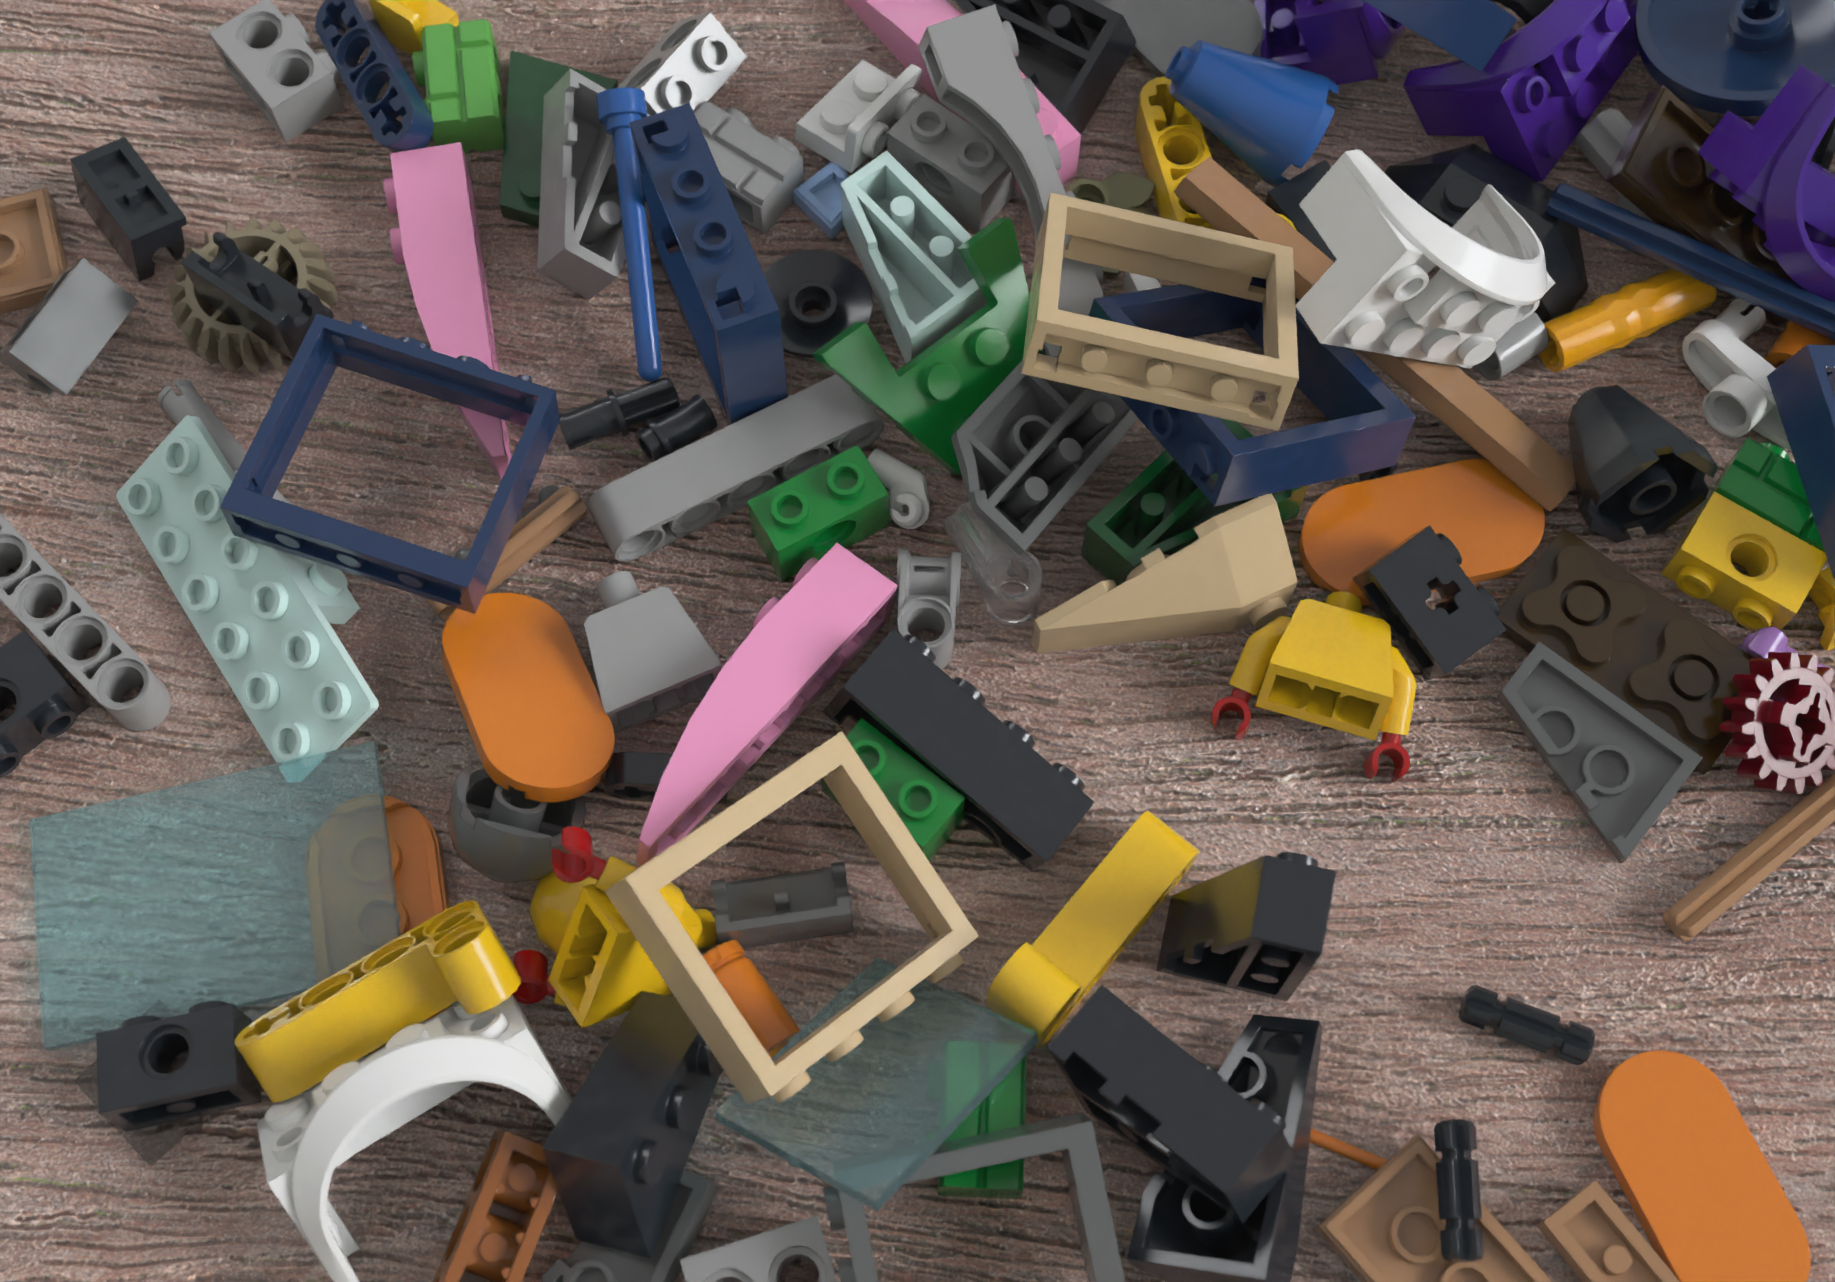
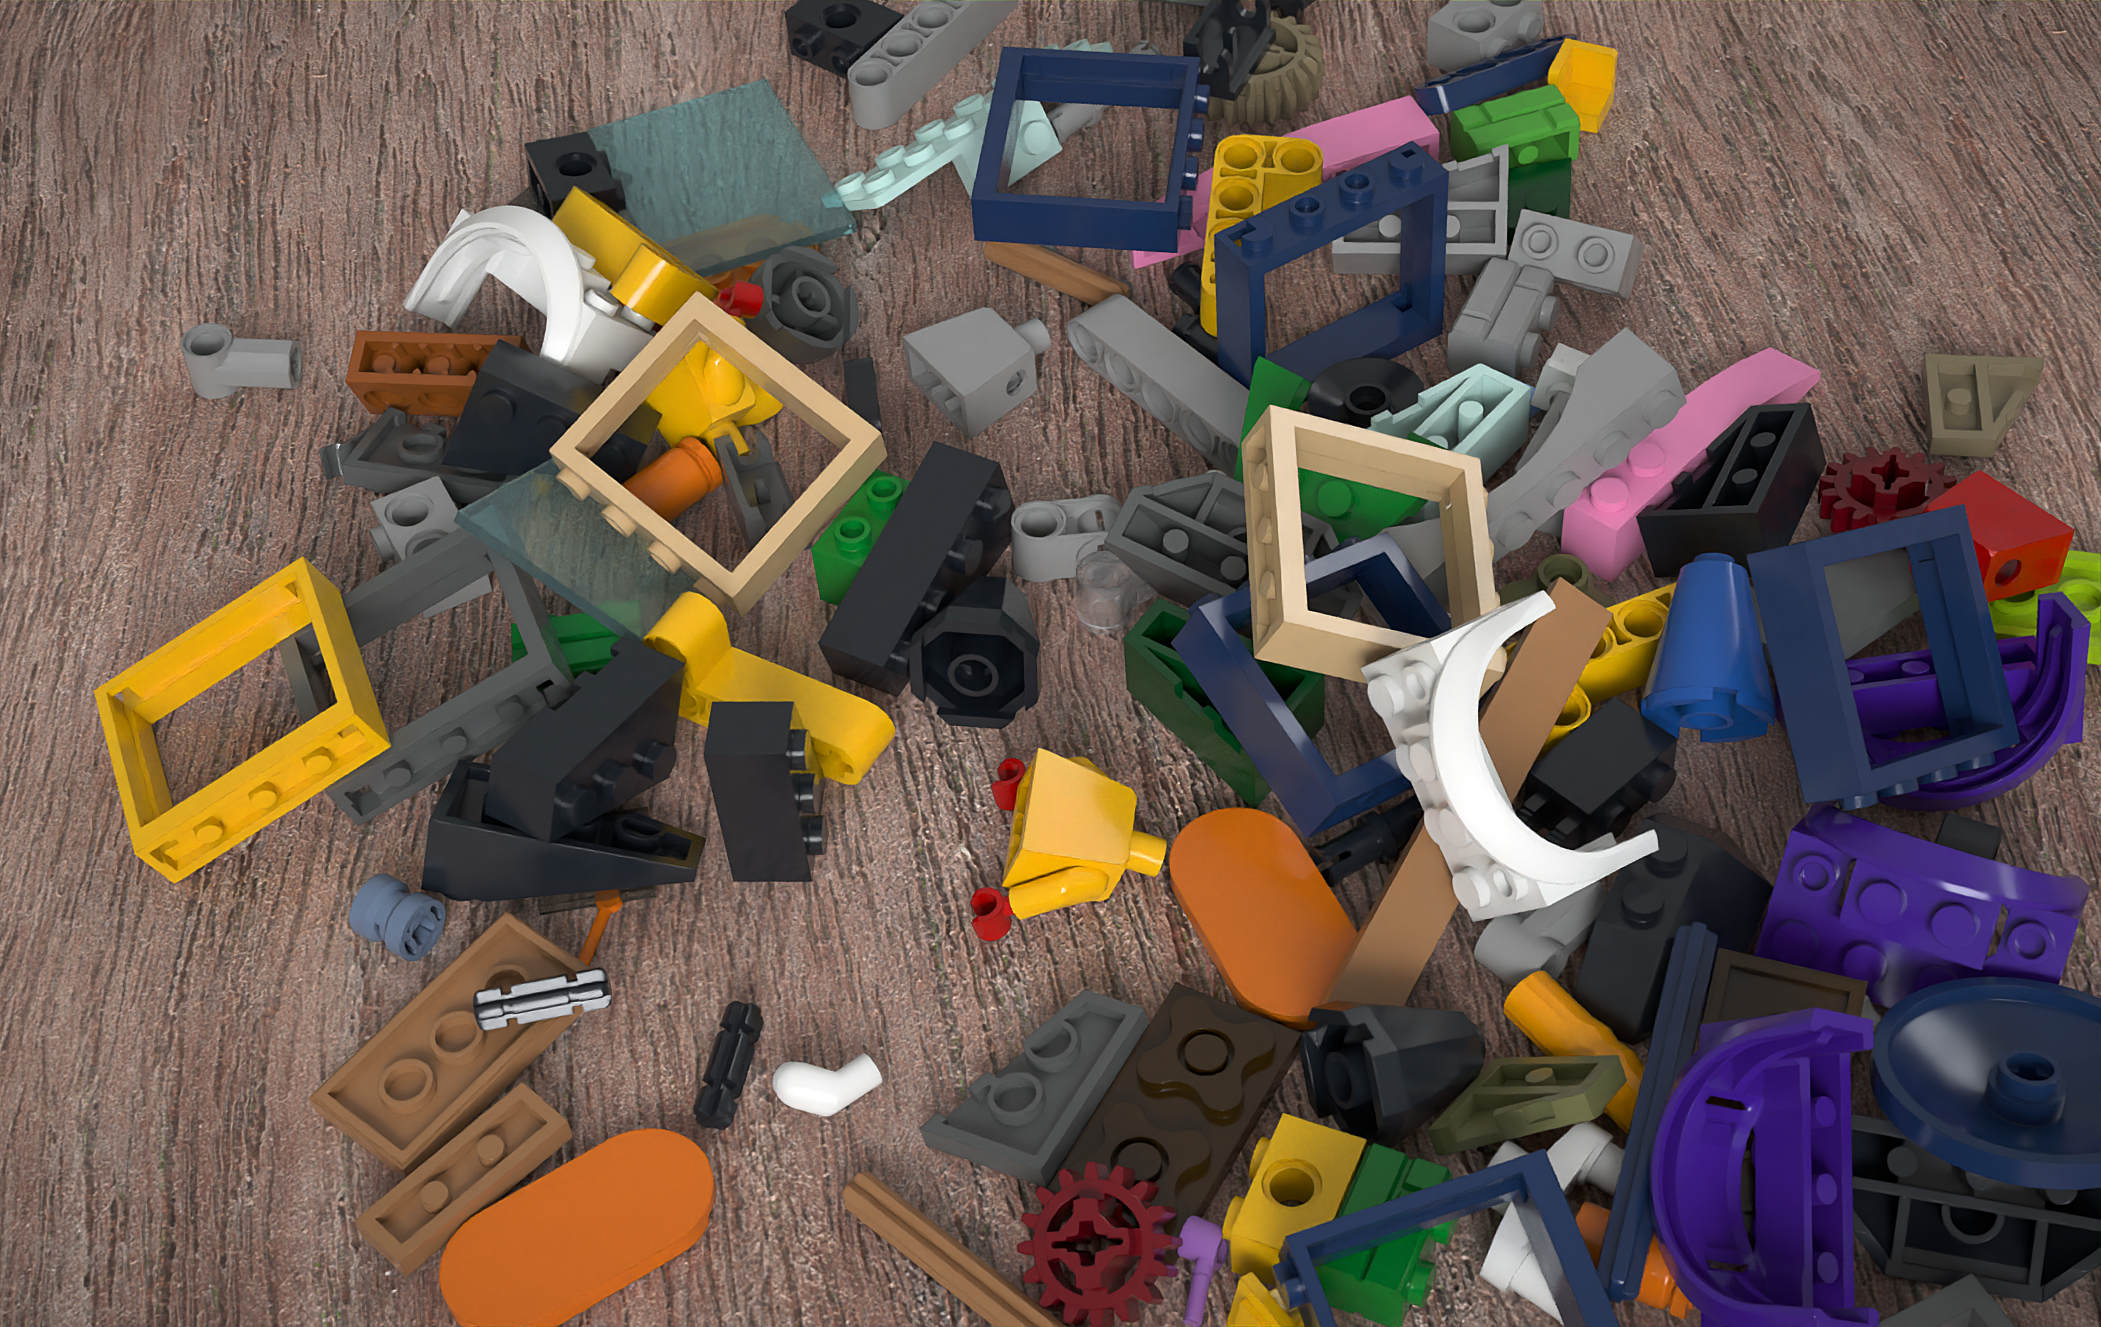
camera: 85 degrees right, 20 degrees down
(527, 697) = (906, 286): orange tile -> none
(578, 340) = (1248, 179): none -> yellow beam
(616, 110) = (1475, 194): blue piece -> none
(766, 685) = (925, 406): bright pink slope -> none
(817, 509) = (1138, 436): green brick -> none
(1074, 705) = (979, 656): none -> black cone
(1215, 585) = (1142, 712): tan wedge -> none
(1403, 582) = (1162, 903): black brick -> none
(1569, 939) = (823, 1090): none -> white arm
(1679, 363) = (1527, 1097): none -> olive wing

